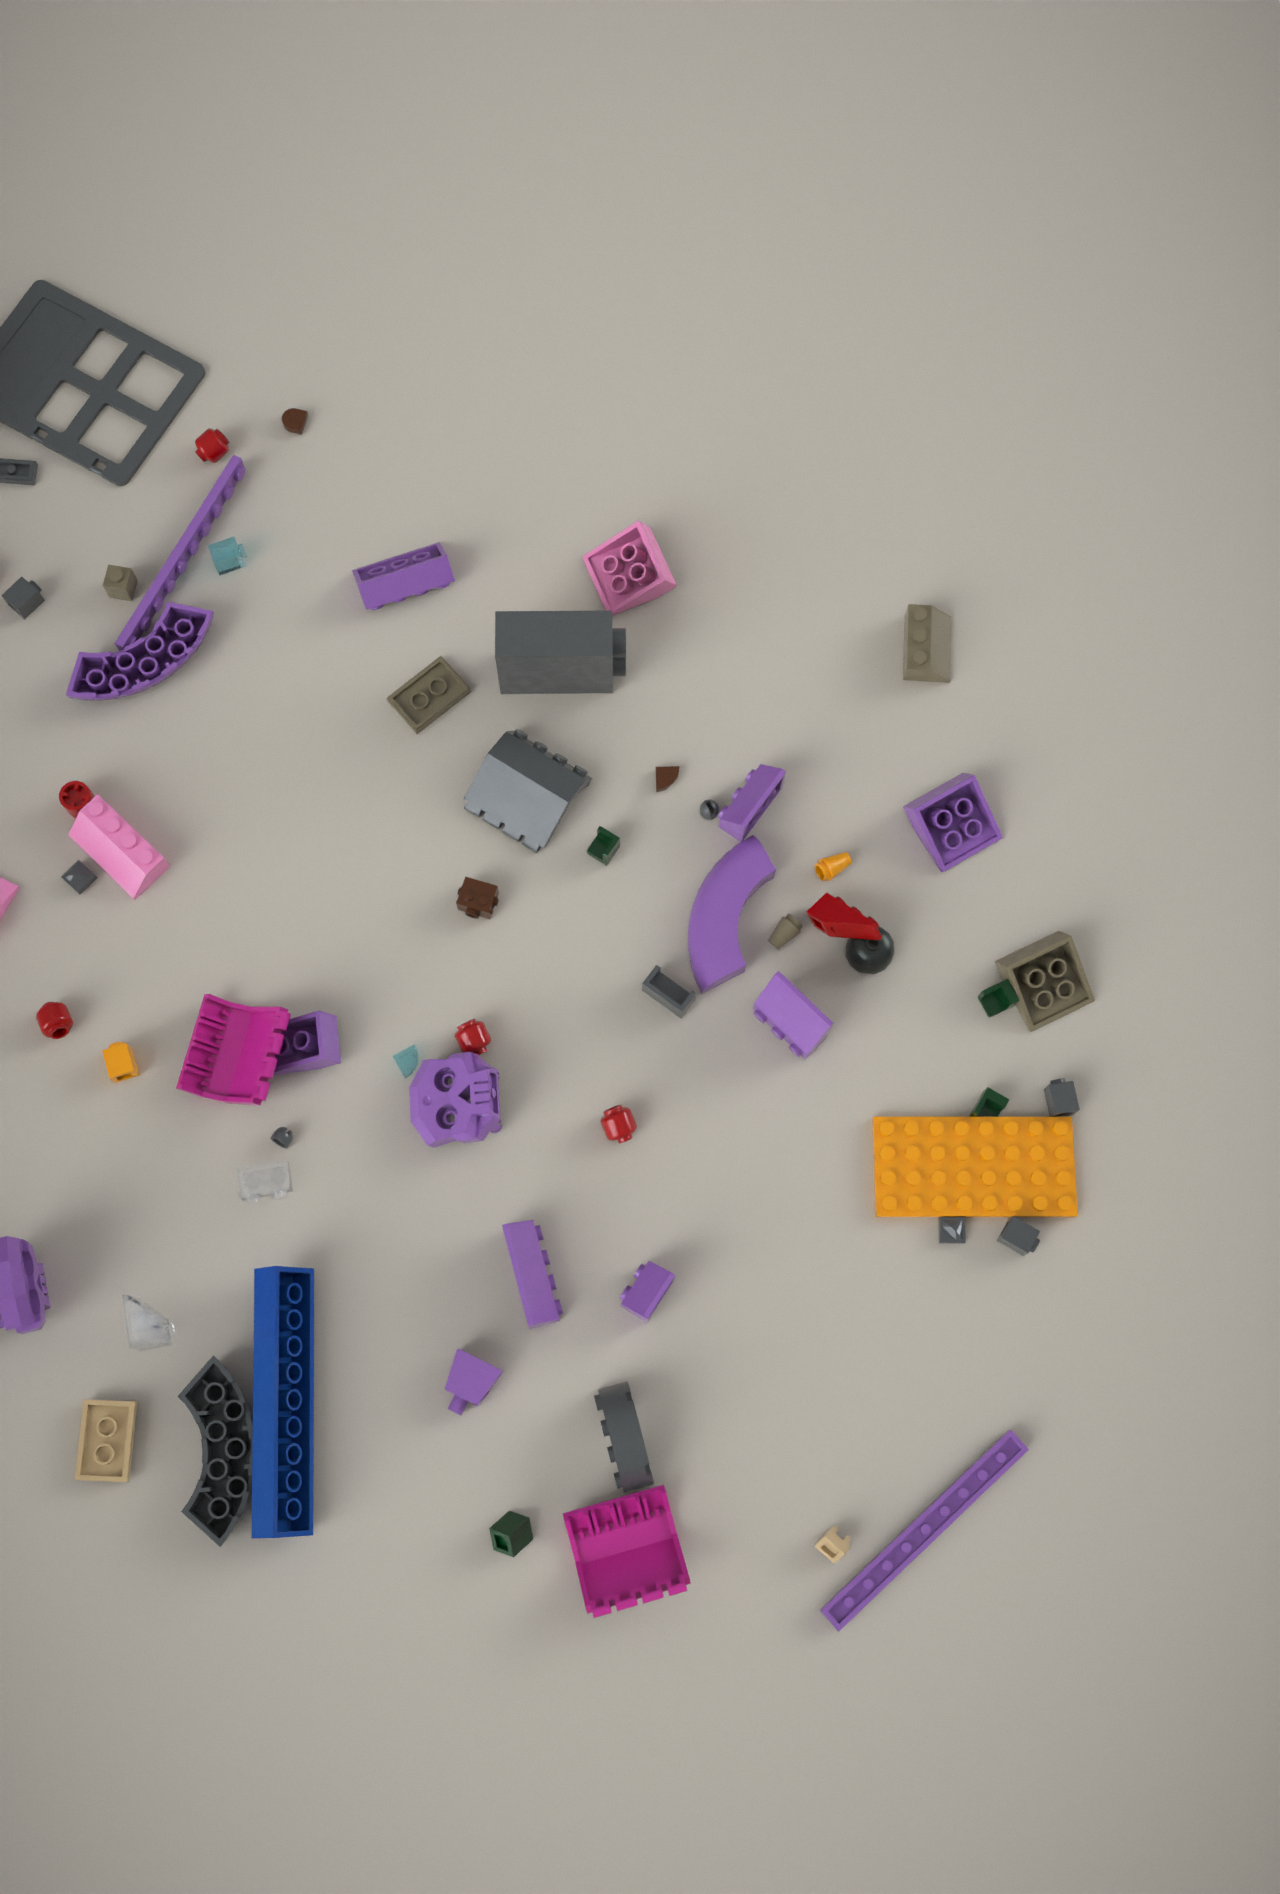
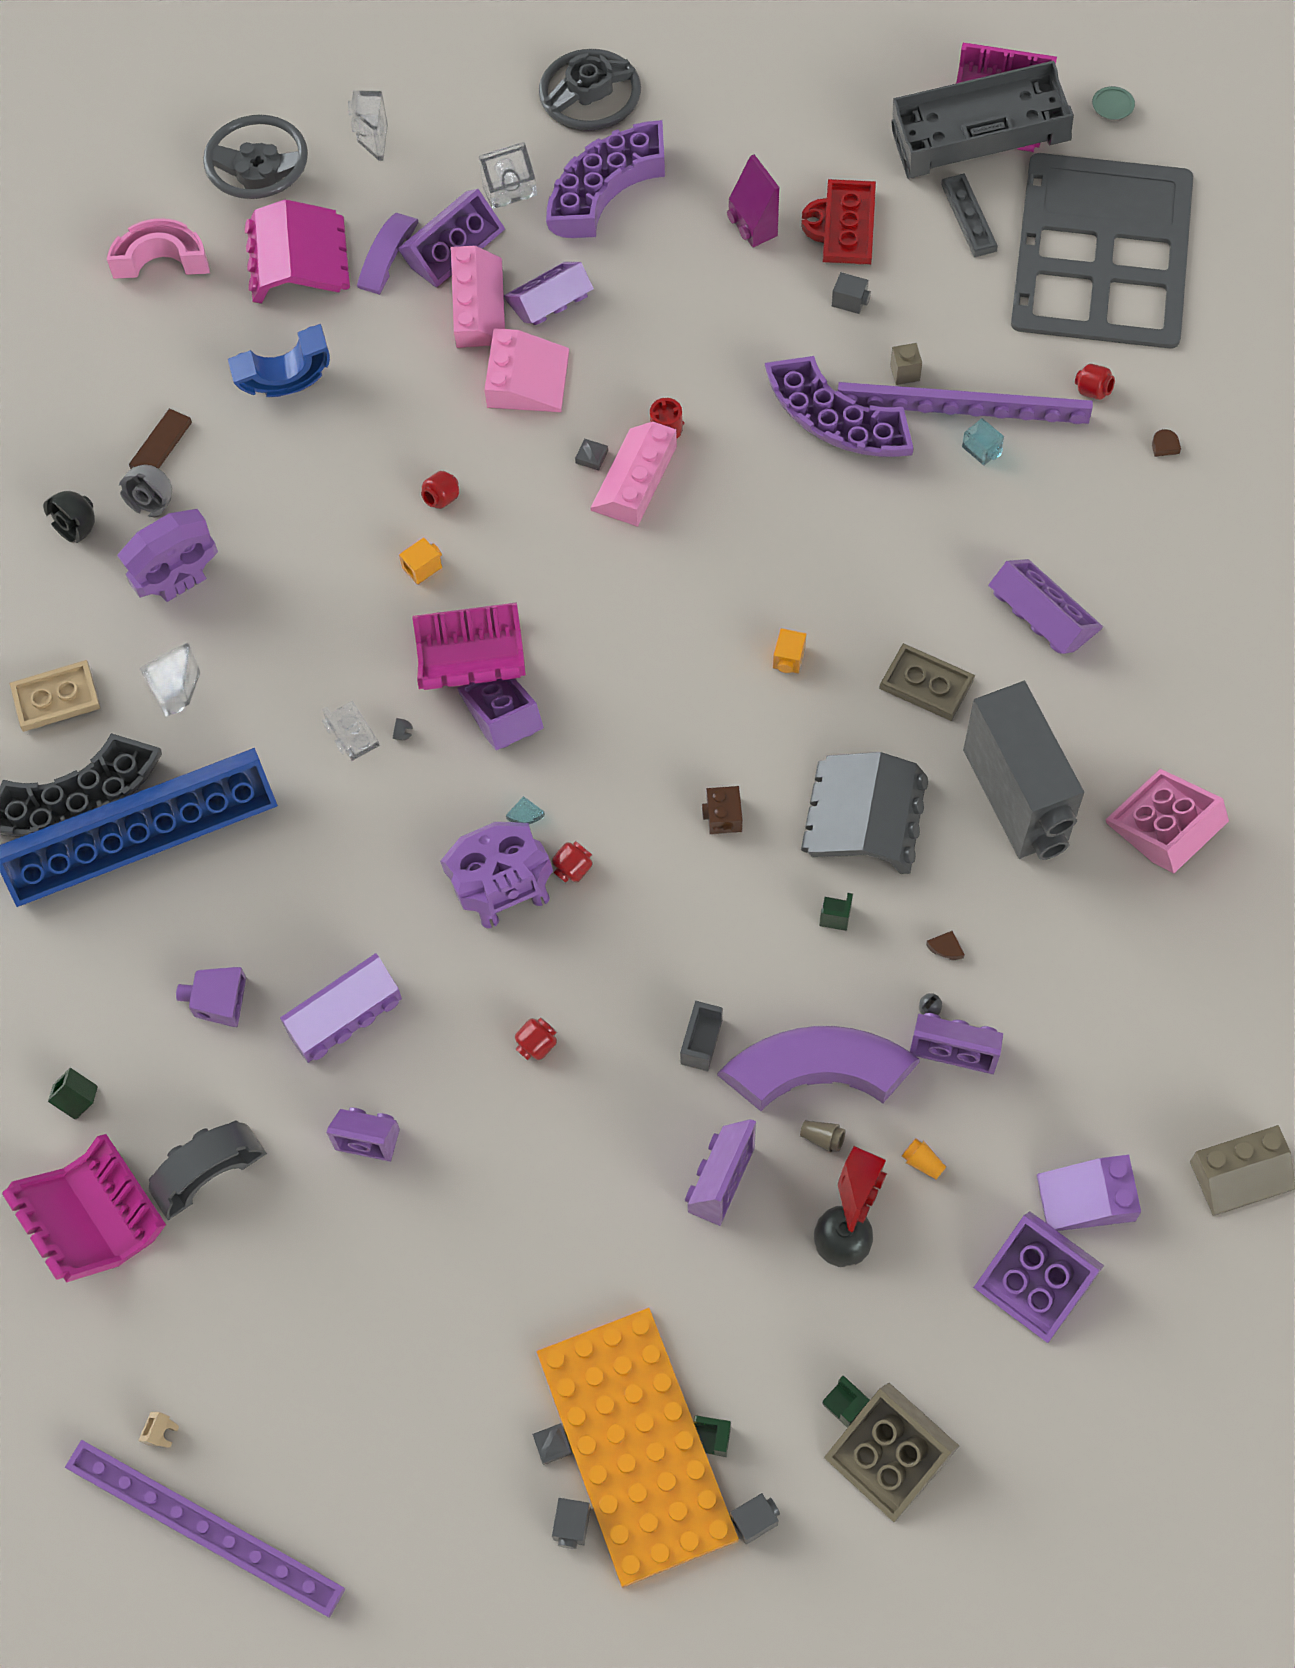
camera: 75 degrees right, 10 degrees down
(354, 789) = (789, 651): none -> light orange brick
(905, 759) = (1090, 1194): none -> slope

